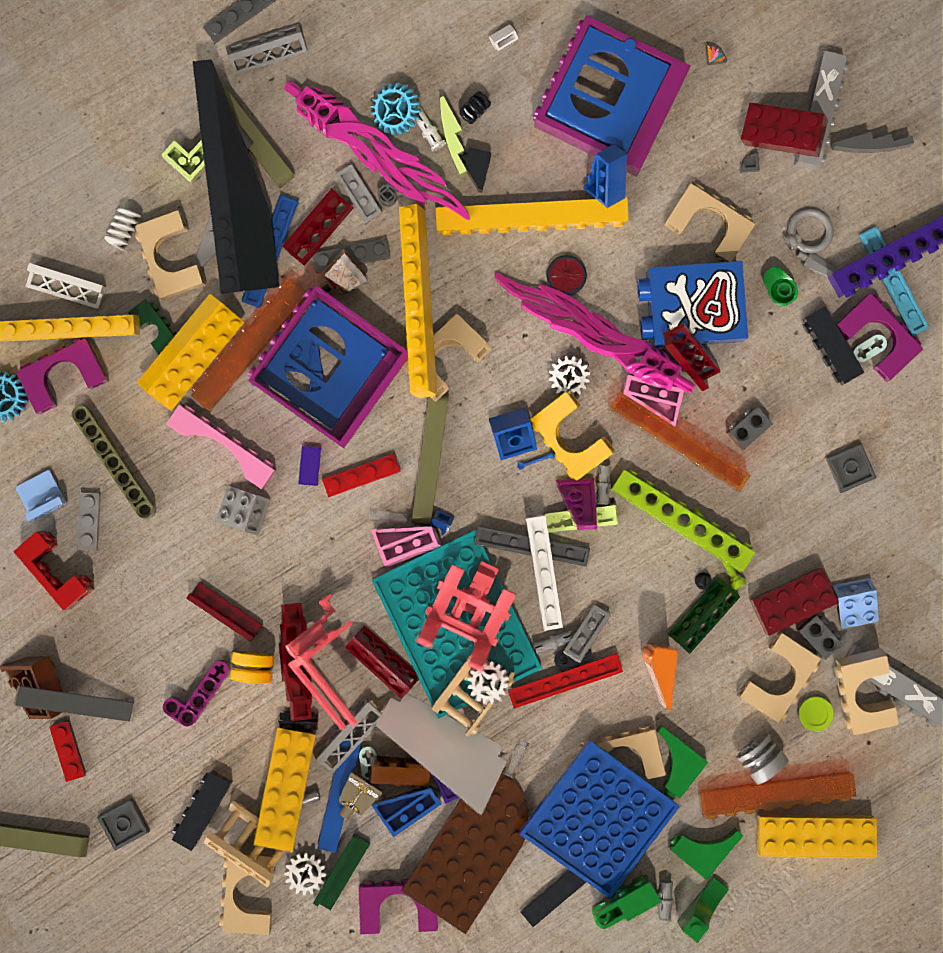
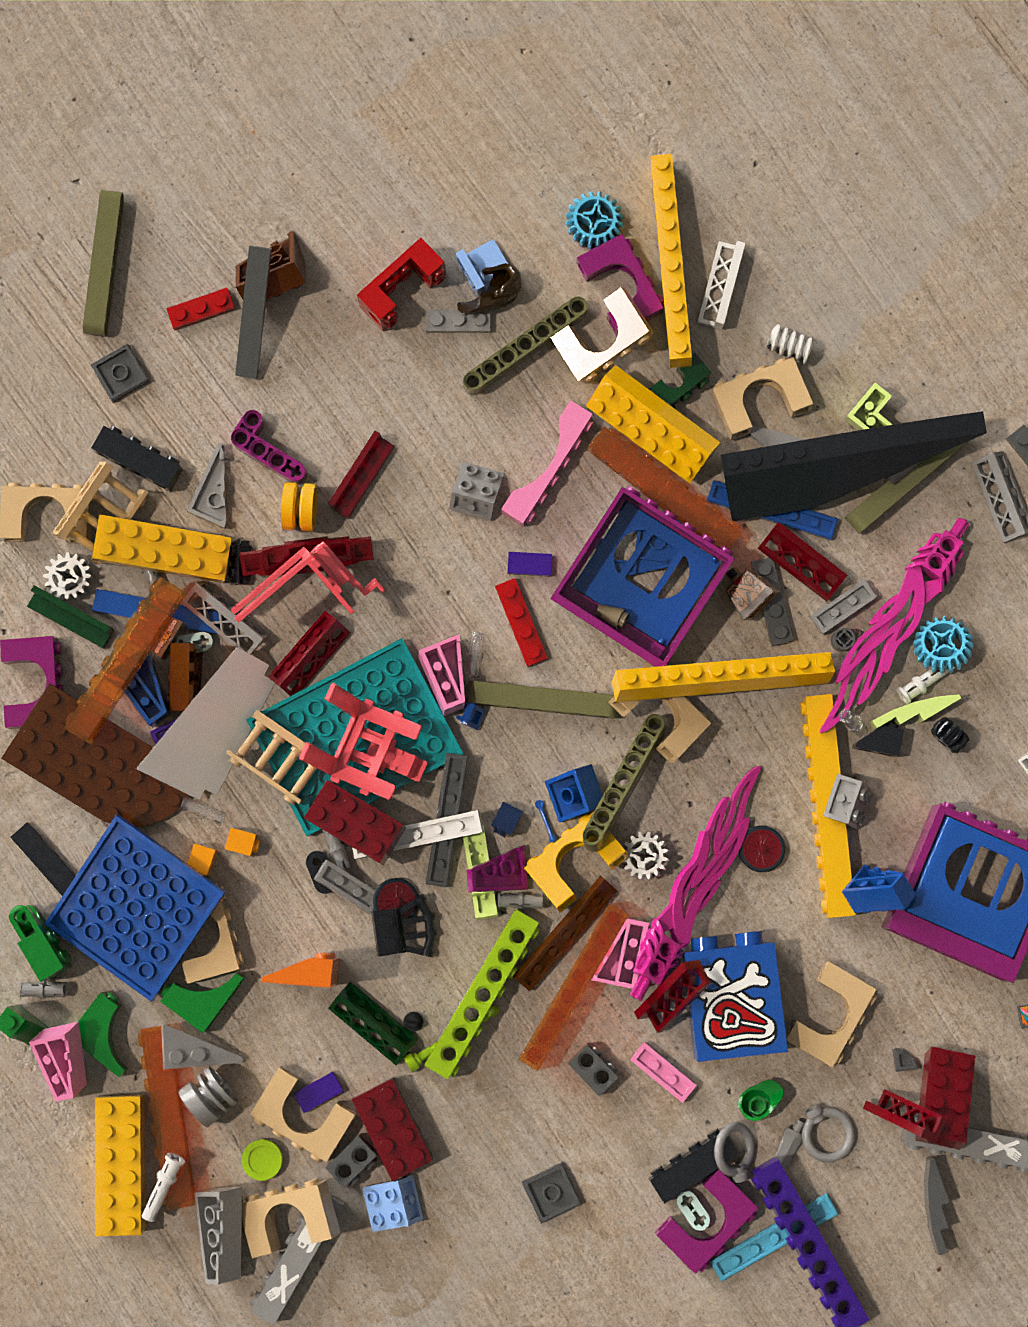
camera: 90 degrees right, 5 degrees down
(62, 480) = (501, 291): none -> dark brown hair
(105, 366) = (631, 331): none -> arch
(236, 745) = (210, 495): none -> light grey wing
(359, 394) = (613, 616): none -> dark tan cone
(384, 823) = (125, 660): none -> clear orange brick
(461, 190) = (853, 723): none -> clear pin
(482, 688) = (293, 781): white gear -> none
(497, 390) = (621, 792): none -> olive beam
(529, 198) = (848, 801): none -> light grey bracket
(533, 494) = (506, 820): none -> dark blue brick
(533, 625) = (355, 822): none -> dark red brick
(545, 724) = (242, 842): none -> light orange brick
(558, 759) = (202, 859): none -> light orange brick
(565, 681) = (293, 864): red plate -> none
(600, 592) = (393, 894): none -> dark red wheel
(626, 598) = (390, 933): none -> black plate
(633, 447) = (565, 933): none -> reddish brown plate
(723, 776) = (184, 1051): none -> light grey wing
(727, 885) = (61, 1059): none -> bright pink wedge
(753, 368) = (663, 1072): none -> bright pink plate
(760, 664) = (318, 1092): none -> dark purple tile
(803, 167) = (901, 1120): none -> dark red fence
(829, 795) = (166, 1178): none -> white pin
(838, 308) = (738, 1171): none -> light grey piece
(876, 751) = (220, 1232): none -> light grey wedge

